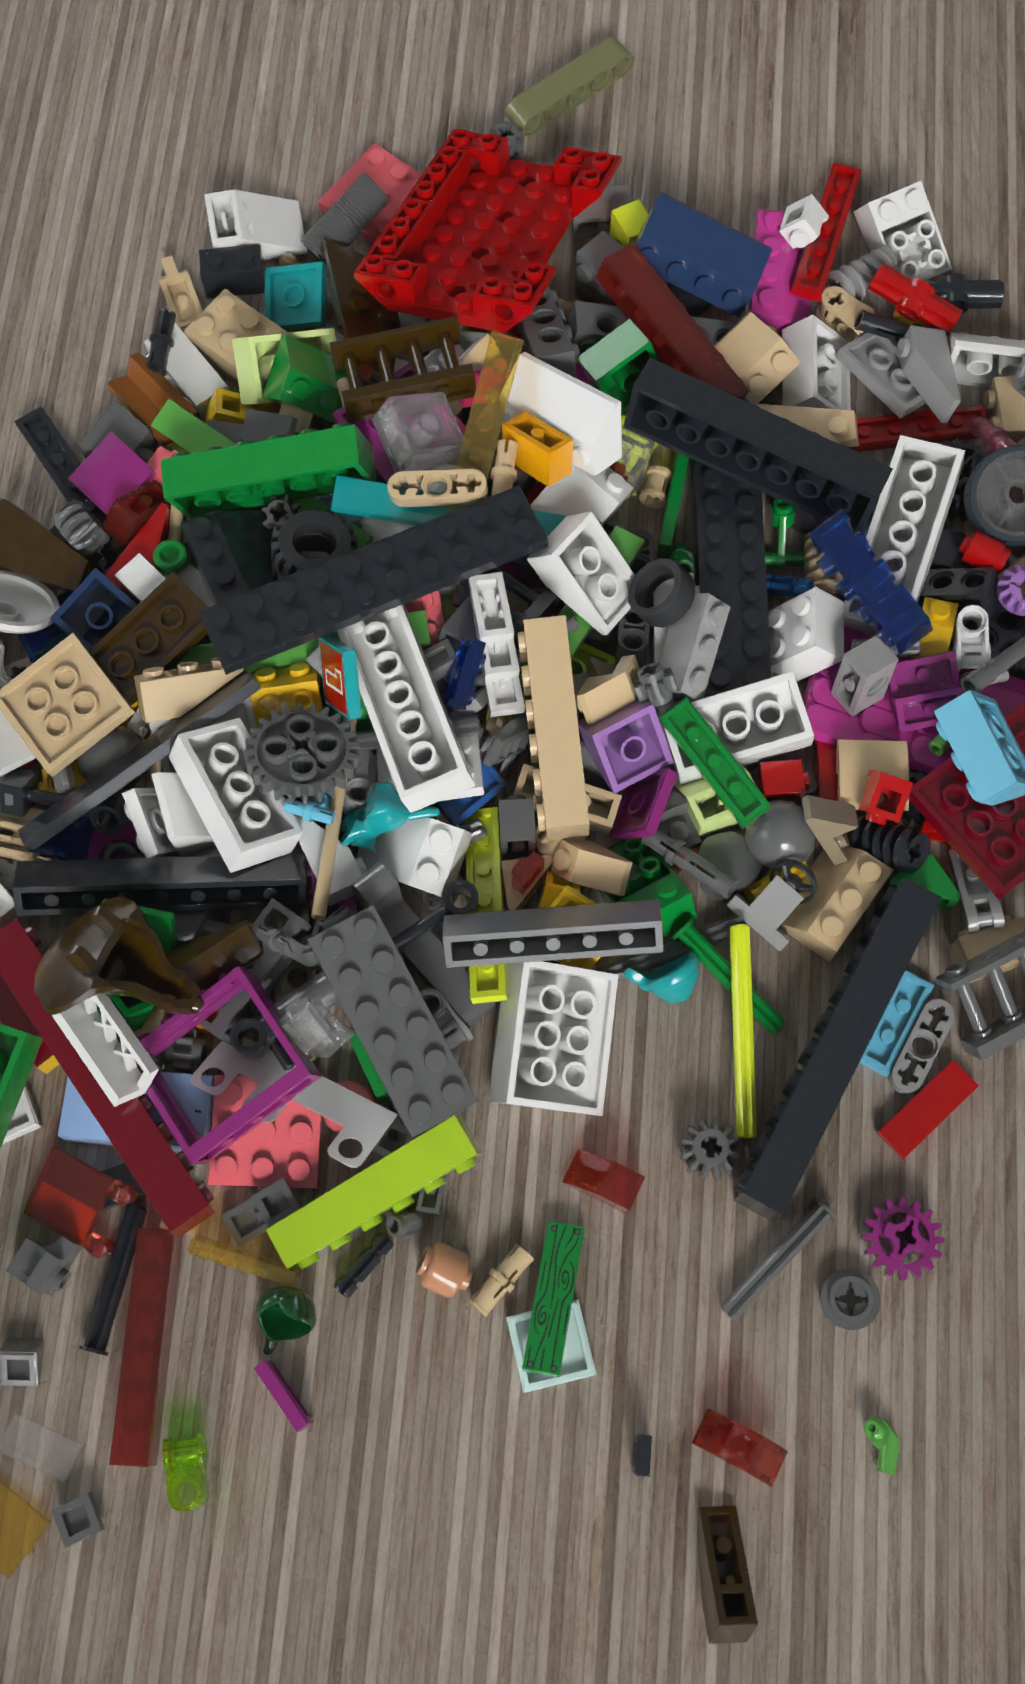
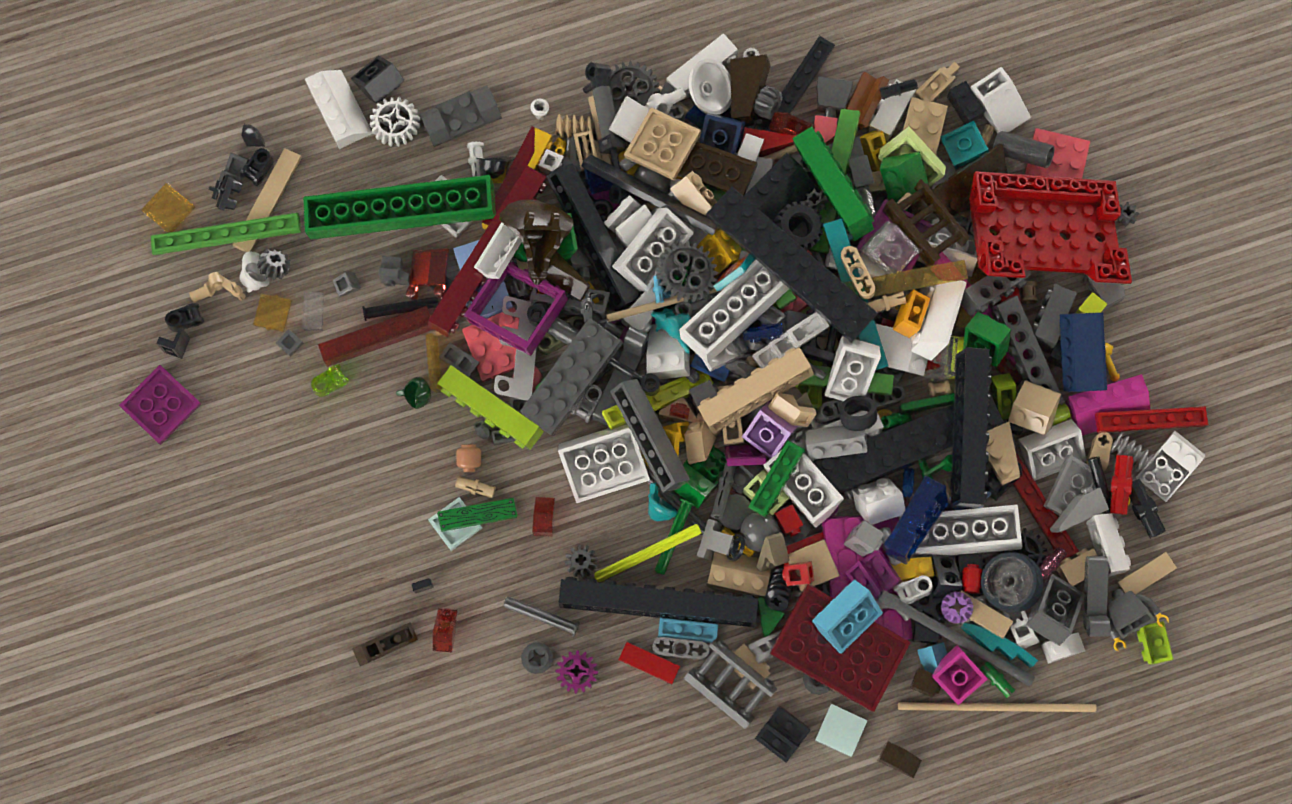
camera: 65 degrees right, 5 degrees up
(111, 472) = (807, 102): magenta slope -> none
(170, 557) = (770, 155): green tile -> none
(283, 1395) = (380, 409): magenta tile -> none
(314, 1027) = (552, 341): clear slope -> none
(363, 1264) = (455, 419): black axle -> none
(569, 86) = (1184, 233): olive beam -> none
(655, 684) = (803, 430): dark grey gear -> none
(664, 320) = (1024, 355): clear red brick -> none
(803, 228) = (1142, 402): white brick -> none
(885, 1441) = (476, 700): bright green arm -> none

